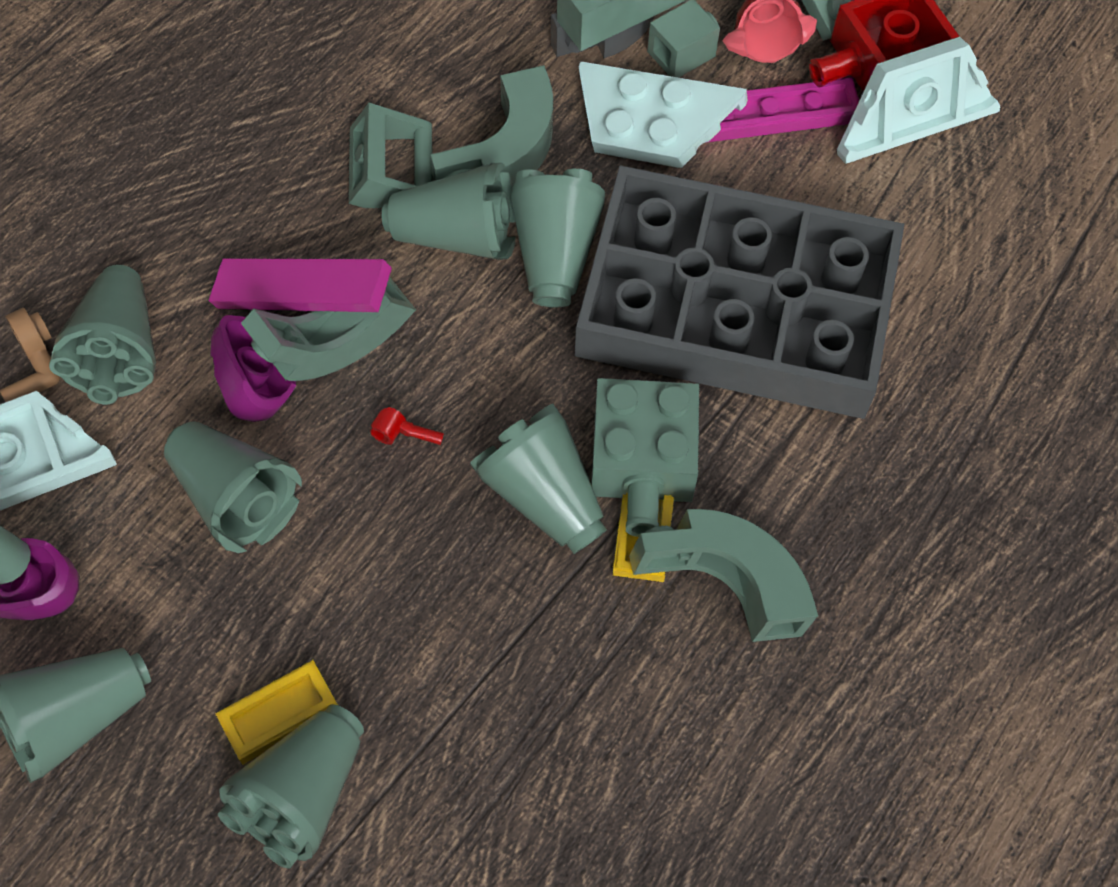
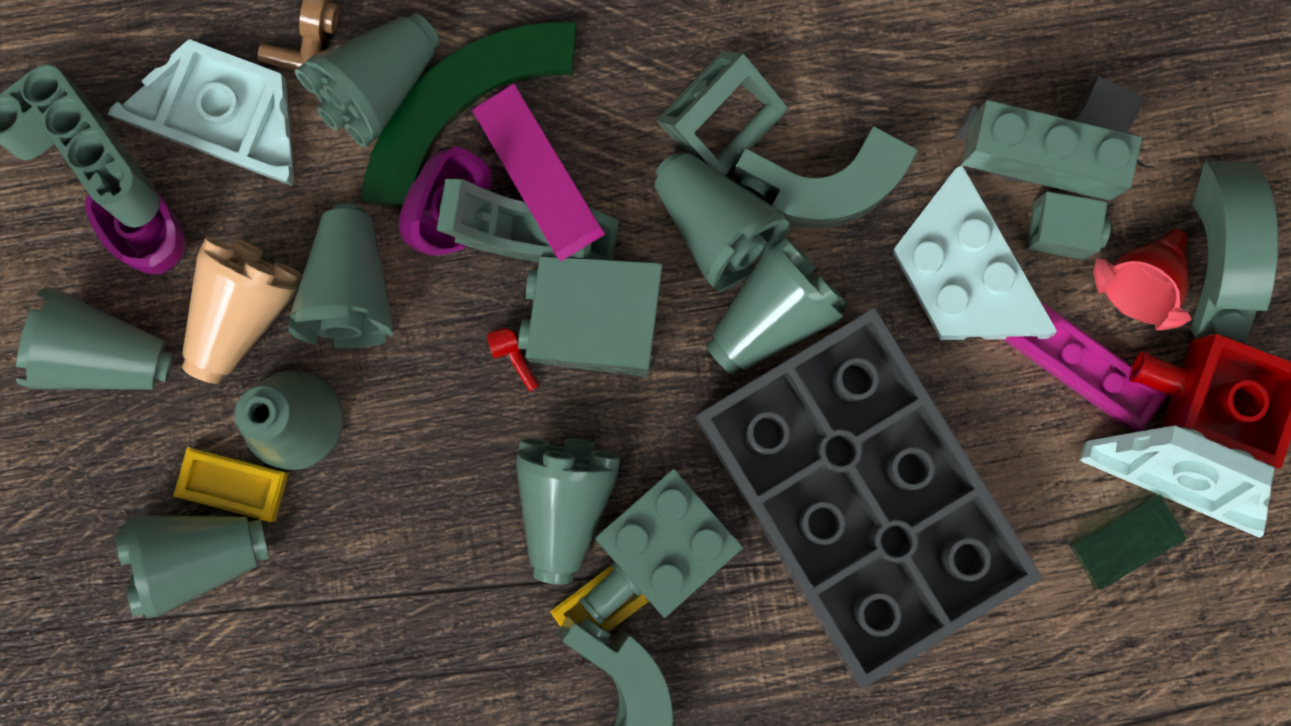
camera: 45 degrees right, 20 degrees up
(153, 571) = (232, 306): none -> light nougat cone
(179, 303) = (450, 90): none -> dark green tile
(277, 616) = (290, 419): none -> sand green cone
(438, 340) = (592, 314): none -> sand green slope
(929, 181) = (1128, 541): none -> clear green tile

